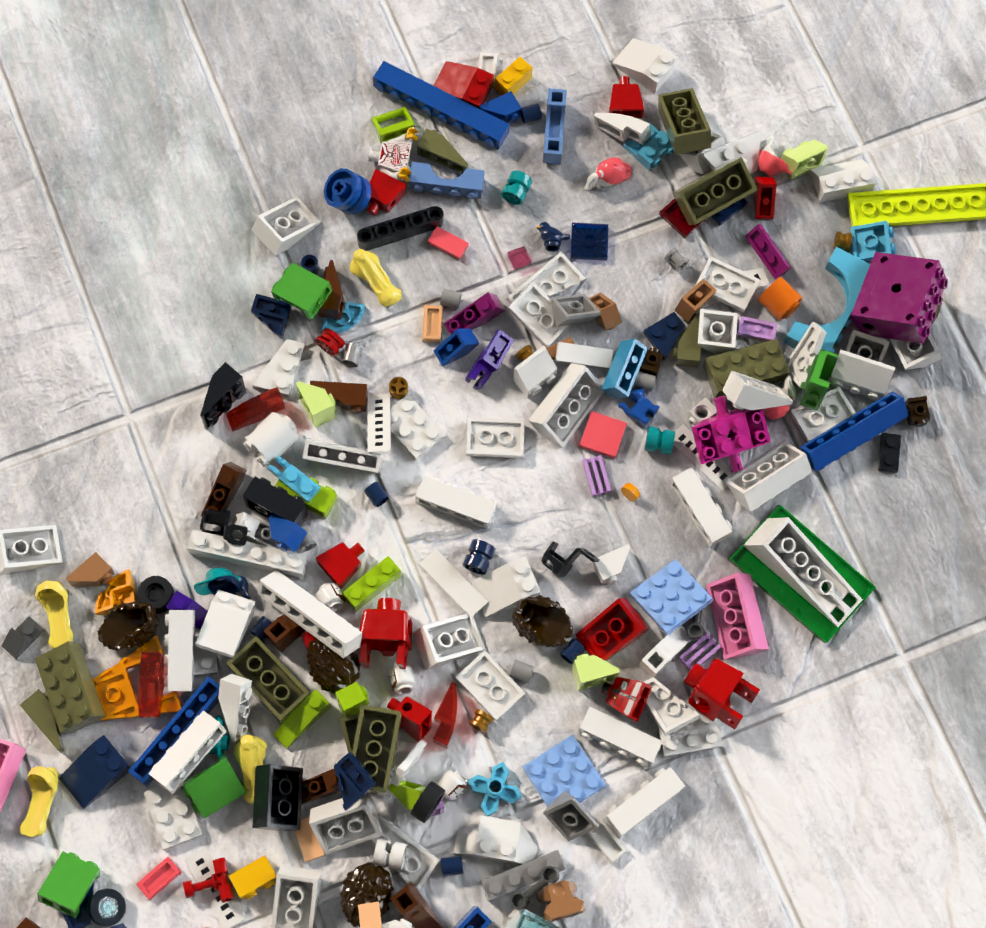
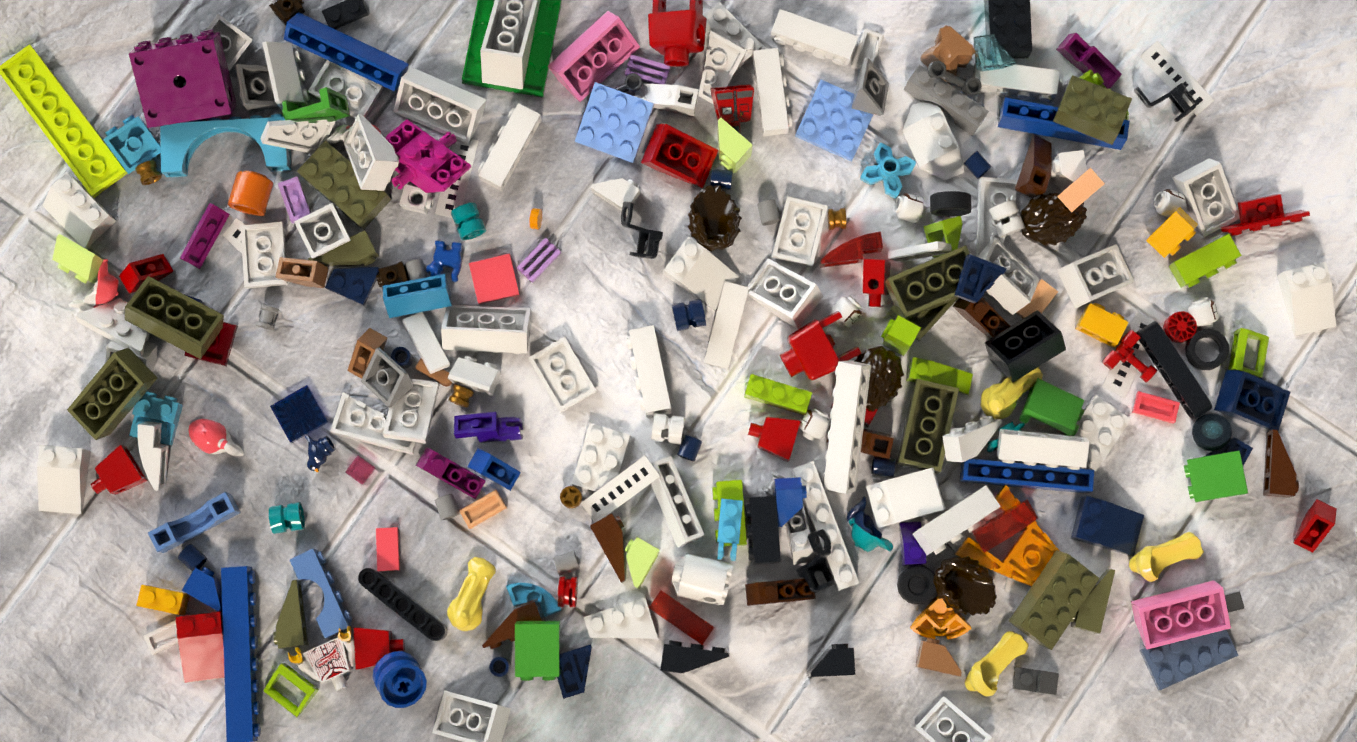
camera: 115 degrees left, 10 degrees up
(140, 489) = (834, 662): none -> black slope
(177, 912) = (1174, 370): none -> black beam
(401, 487) = (667, 428): none -> white wheel
(584, 326) = (399, 350): none -> dark blue beam

